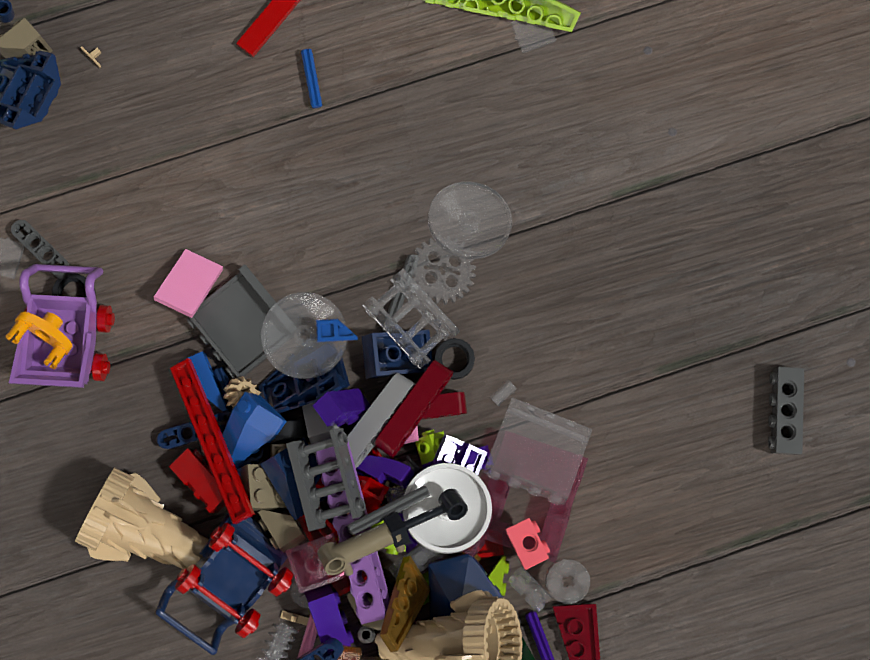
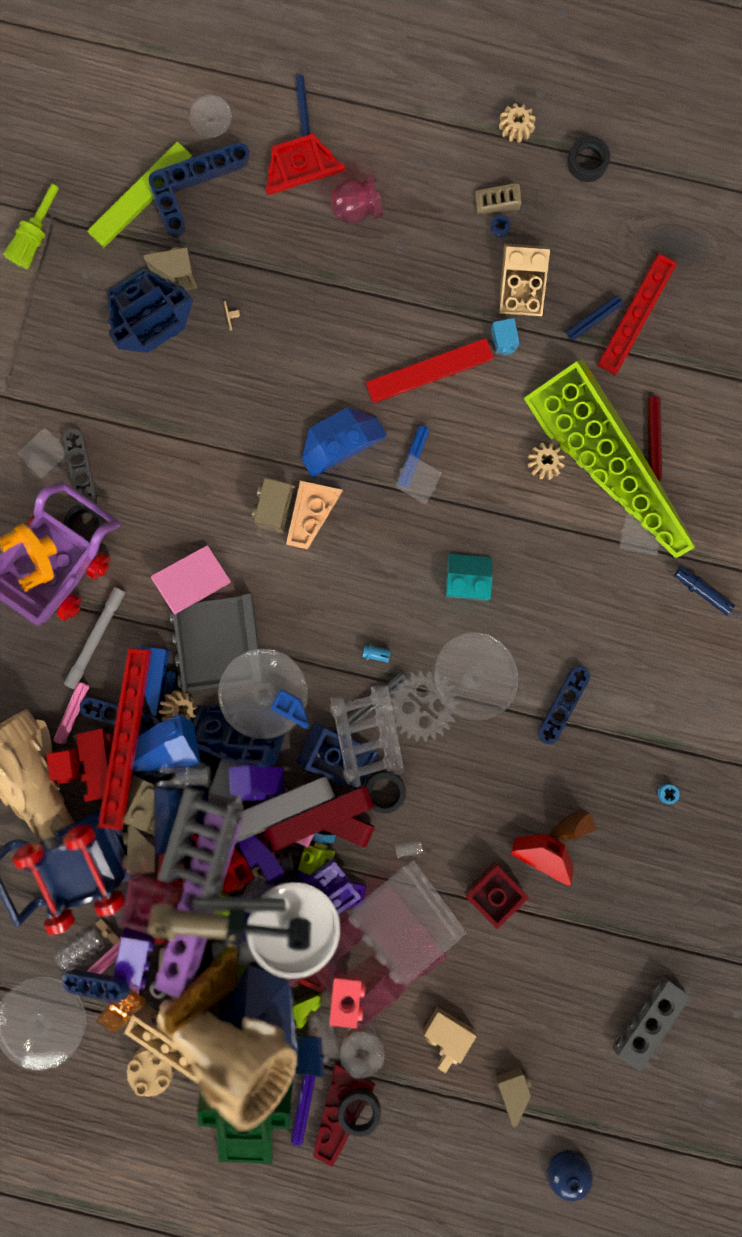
camera: 30 degrees right, 5 degrees up
(138, 415) = (110, 607): none -> light grey piece
(154, 454) = (71, 713): none -> bright pink axle
(174, 496) = (64, 766): none -> red brick
(221, 183) = (273, 505): none -> dark tan brick
(243, 100) = (340, 439): none -> blue wedge
(254, 170) = (310, 512): none -> light nougat wing
(279, 439) = (186, 777): none -> clear piece
(326, 93) = (417, 479): none -> clear piece
(376, 252) = (376, 653): none -> dark azure pin
(416, 147) = (469, 577): none -> teal slope
(426, 24) = (549, 468): none -> tan gear
(427, 426) = (323, 837): none -> dark azure tile
(528, 611) = (310, 1056): none -> dark blue piece
(552, 202) = (560, 703): none -> dark blue beam
(596, 384) = (496, 895): none -> dark red brick
(609, 44) = (696, 585): none -> dark blue pin
(612, 637) = (354, 1129): none -> black tyre
(616, 328) = (545, 855): none -> red slope
(624, 290) = (574, 826): none -> reddish brown slope
(633, 522) = (451, 1035): none -> tan hinge
(690, 218) = (675, 794): none -> dark azure bush
(713, 537) = (515, 1093): none -> dark tan slope
(801, 578) = (570, 1176): none -> dark blue cylinder

